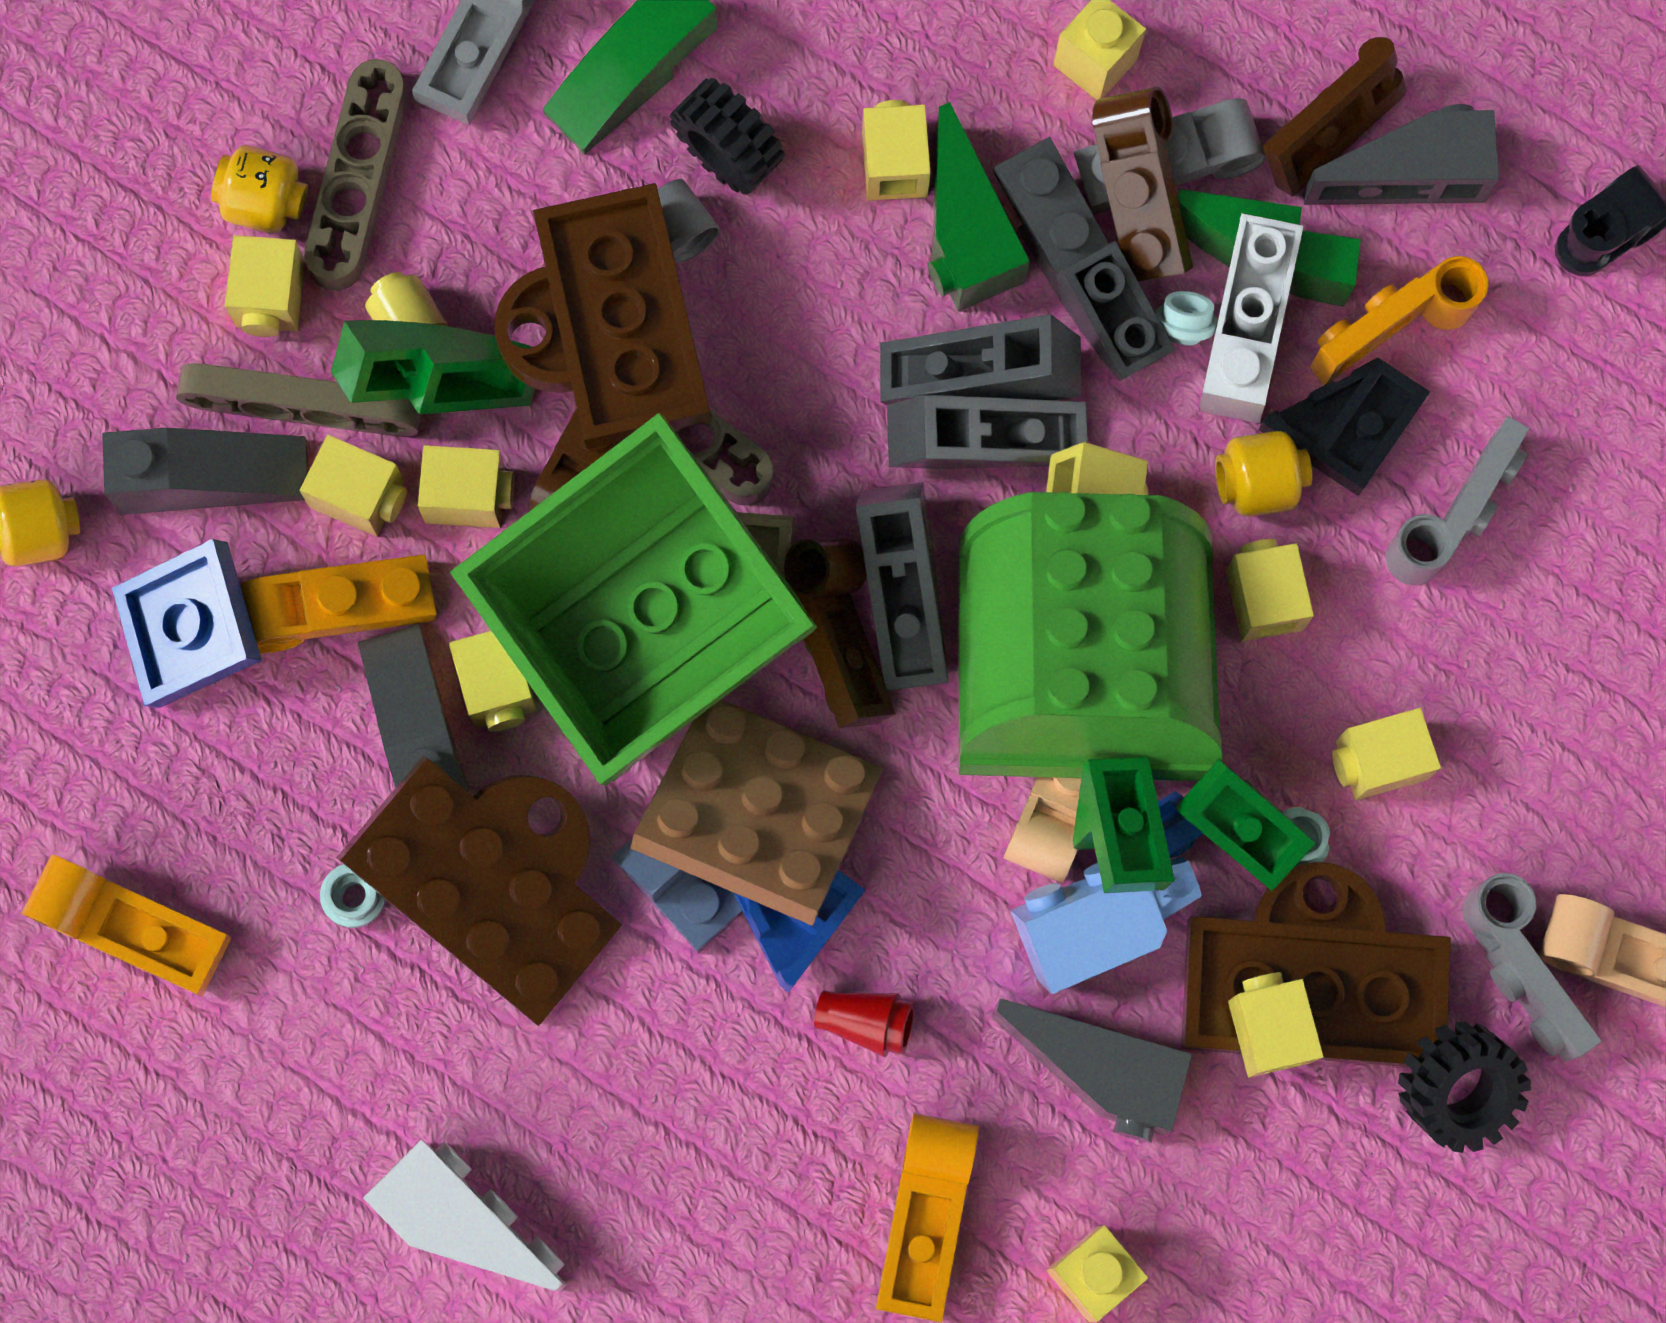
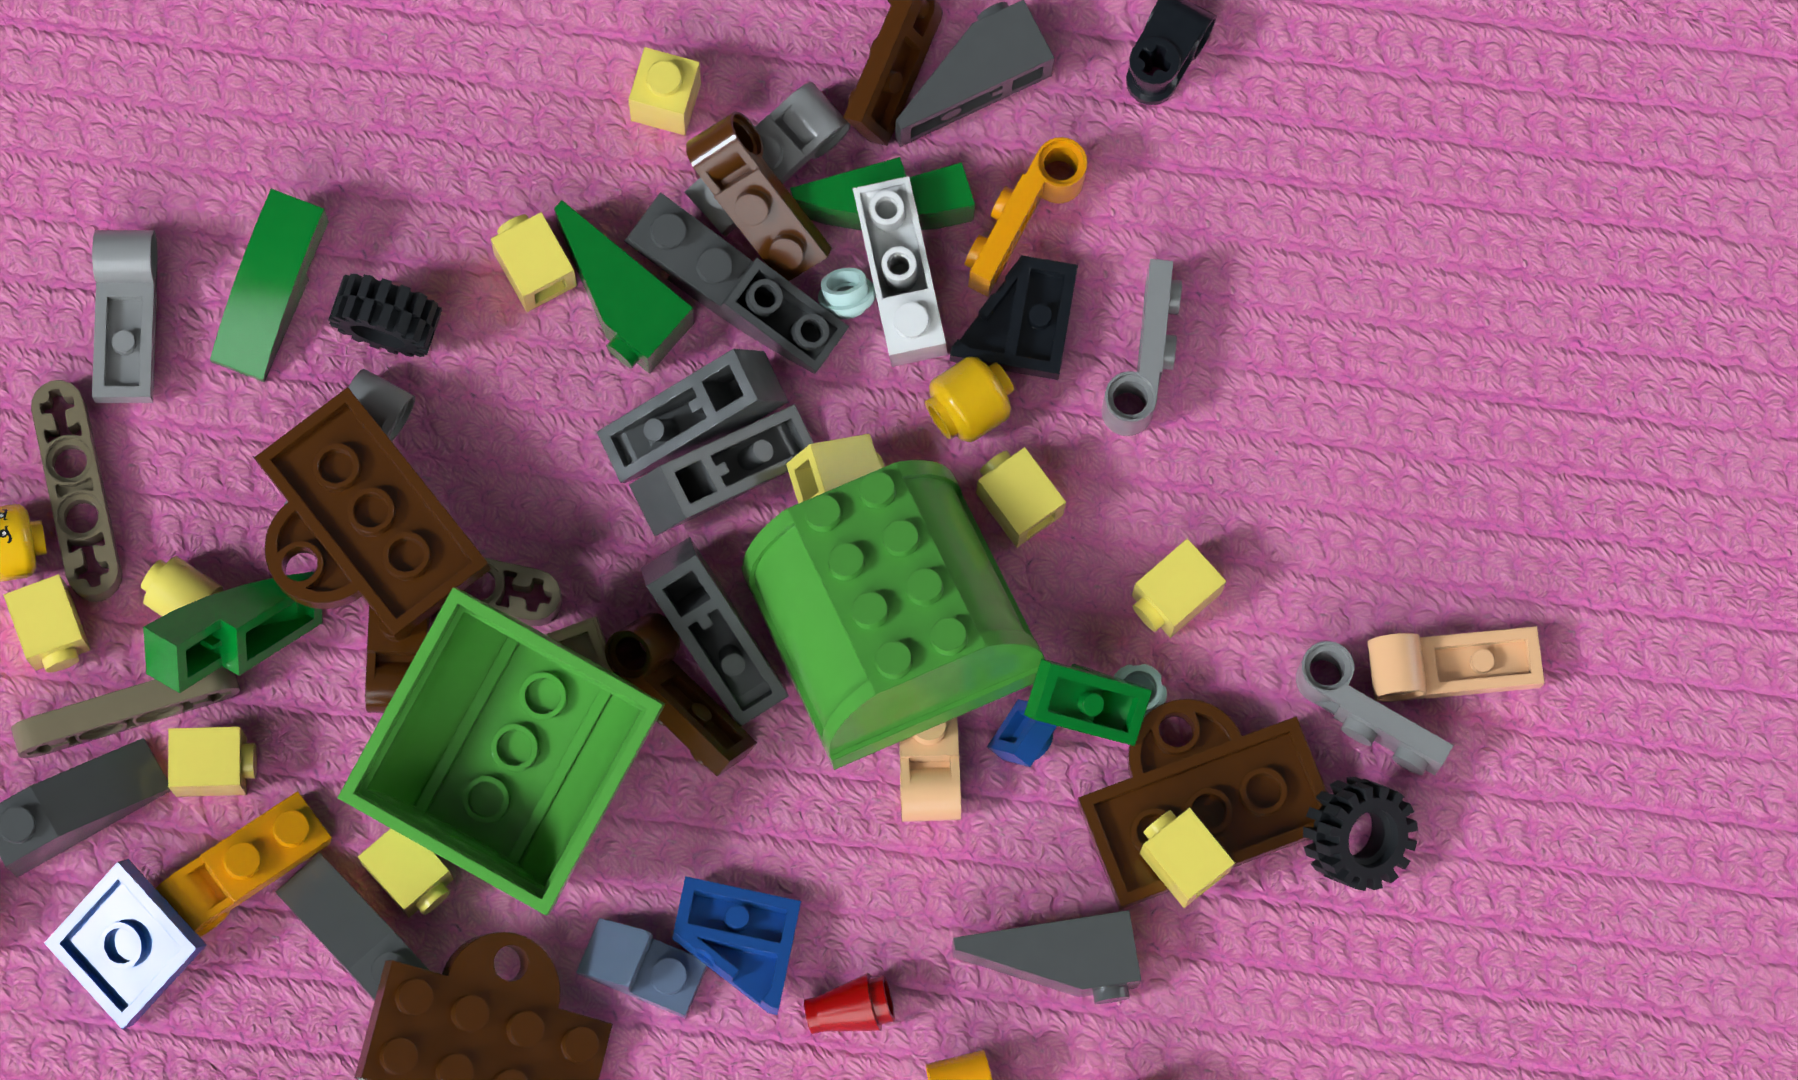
camera: 25 degrees left, 0 degrees up
(464, 486) = (304, 718): light yellow brick -> none
(757, 810) = (682, 875): medium nougat plate -> none
(1084, 932) = (1005, 833): light blue hinge -> none
(1123, 824) = (988, 748): green slope -> none

